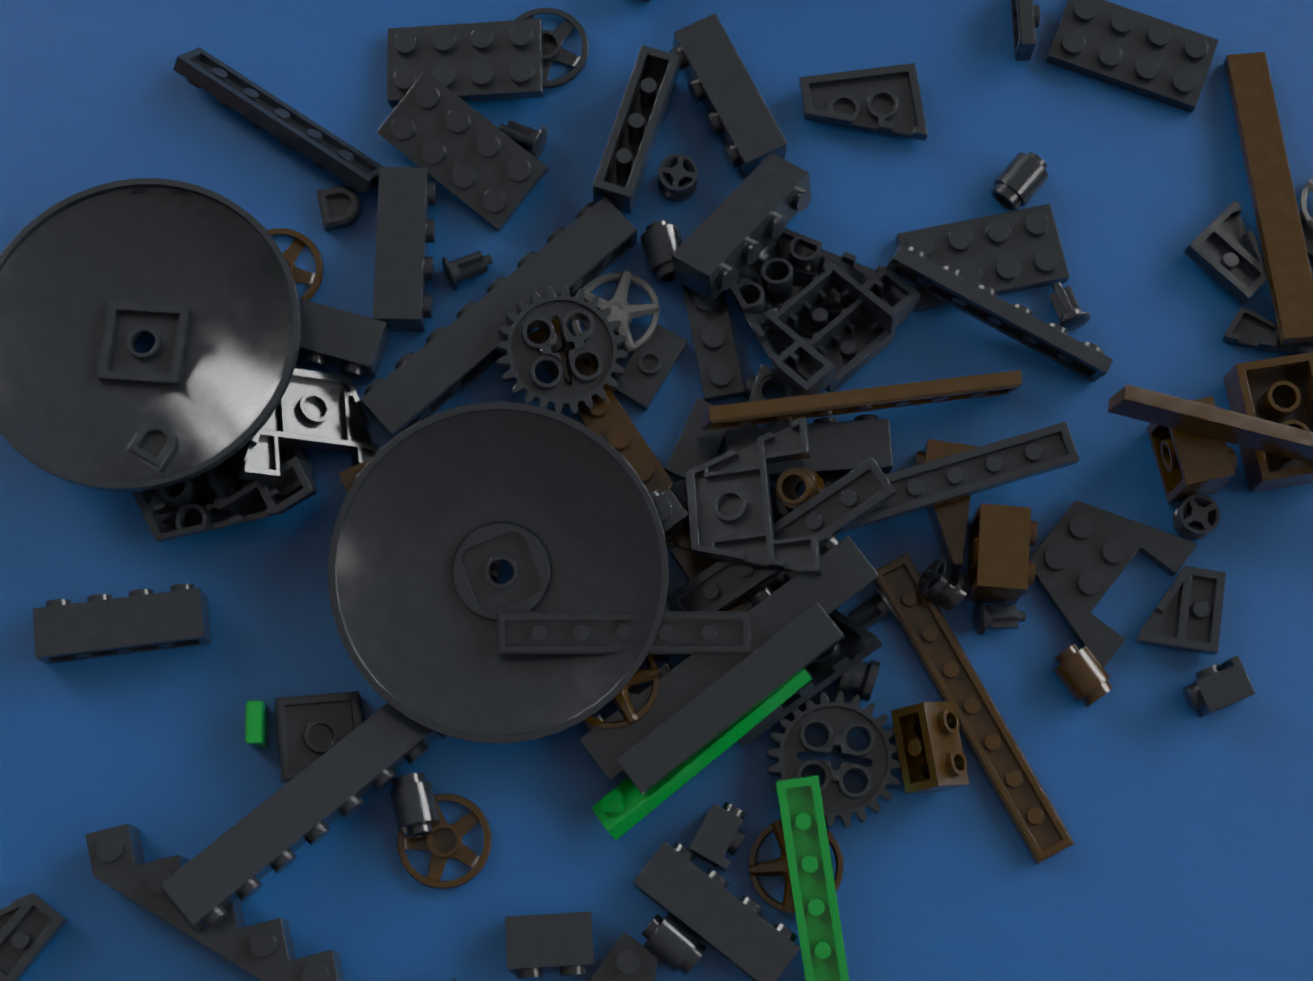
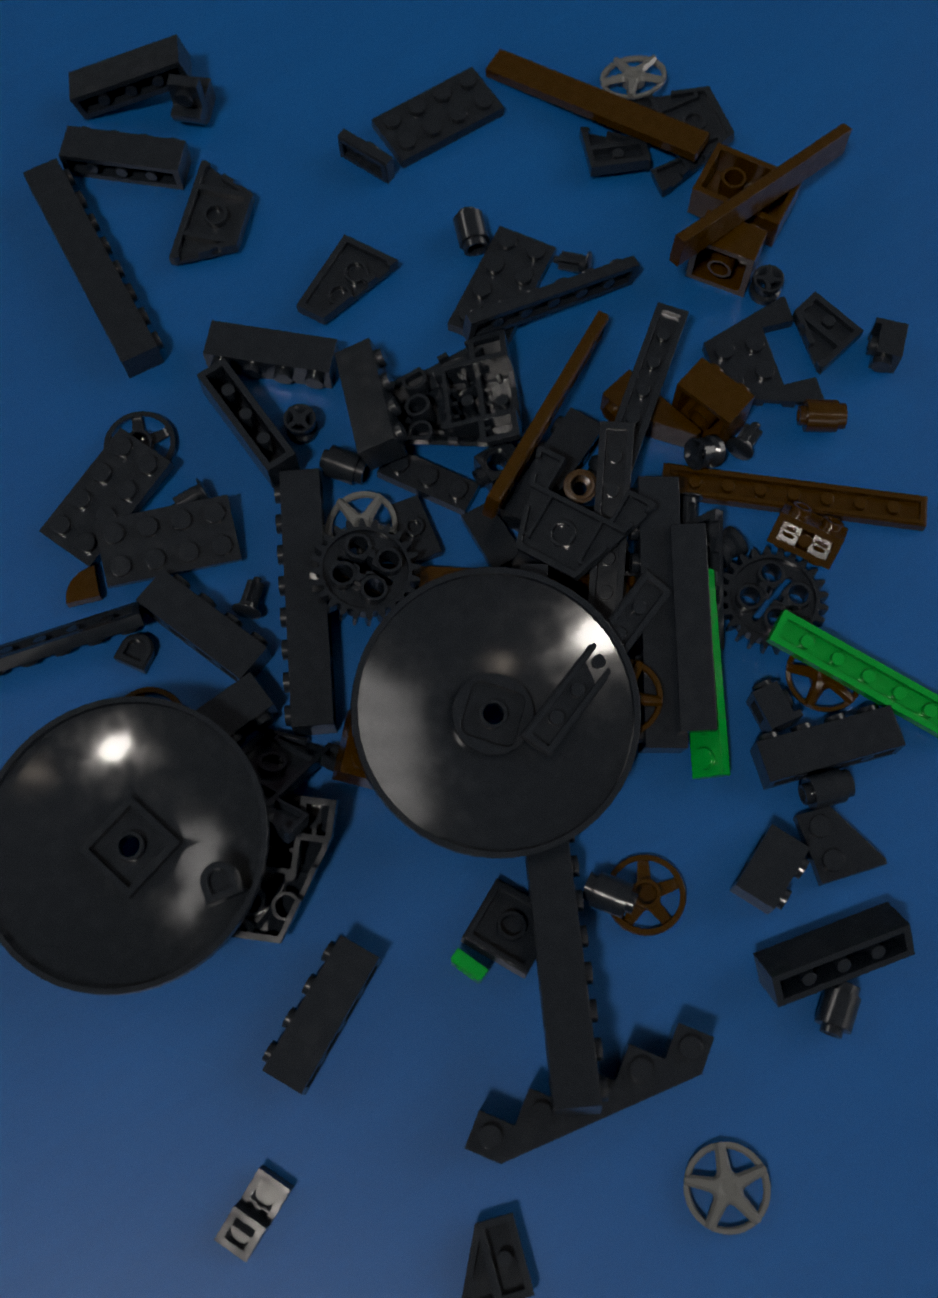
camera: 50 degrees left, 5 degrees down
(364, 112) = (84, 588): none -> dark brown tile

